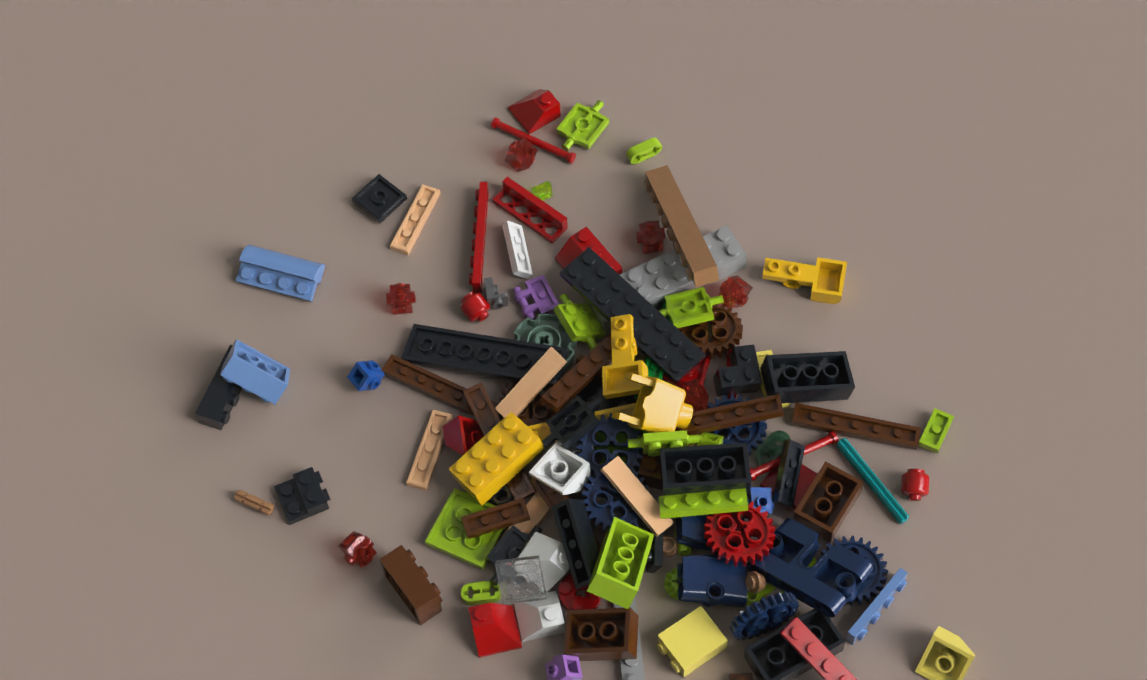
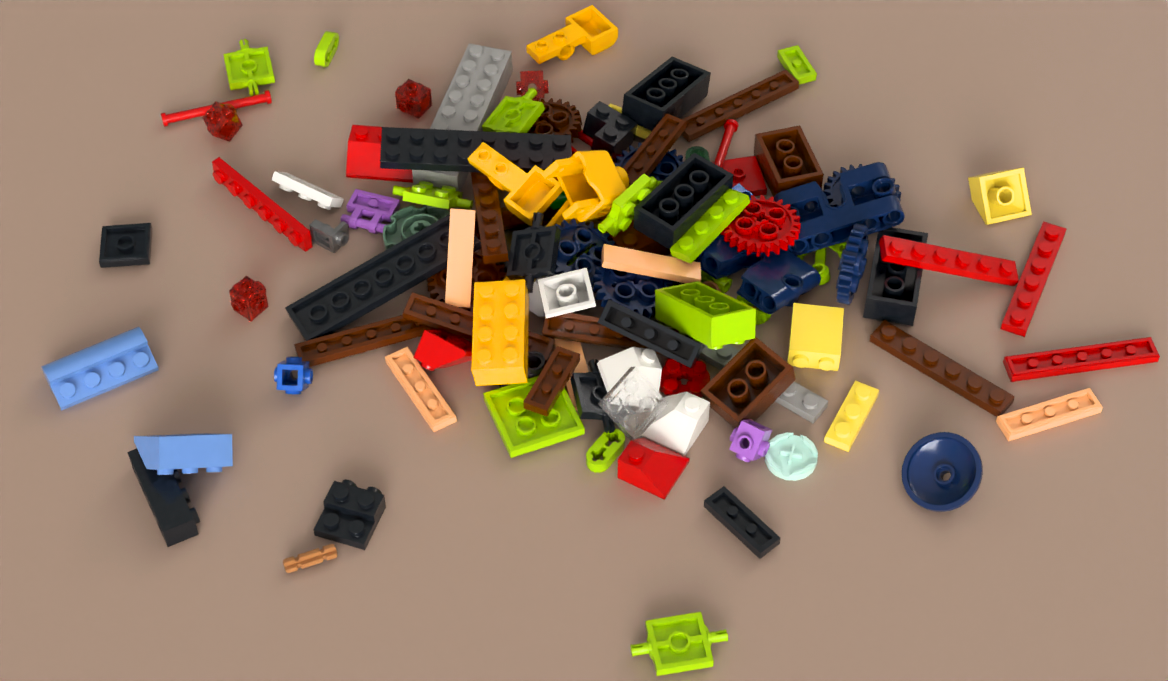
camera: 50 degrees left, 10 degrees down
(357, 549) = (460, 505): clear red brick -> none
(412, 584) = (545, 487): reddish brown brick -> none
(415, 219) = (180, 238): light nougat tile -> none
(475, 307) = (325, 255): red head -> none
(535, 205) = (281, 151): red fence -> none
(536, 110) = (191, 84): red slope -> none
(543, 191) = (275, 135): clear neon green tile -> none
(681, 226) = (436, 64): medium nougat brick -> none
(755, 582) = (810, 253): medium nougat plate -> none
(788, 473) = (737, 165): black plate -> none
(872, 481) = (810, 132): teal axle -> none
(872, 614) = (909, 198): medium blue plate -> none
(915, 484) = (829, 107): red head -> none

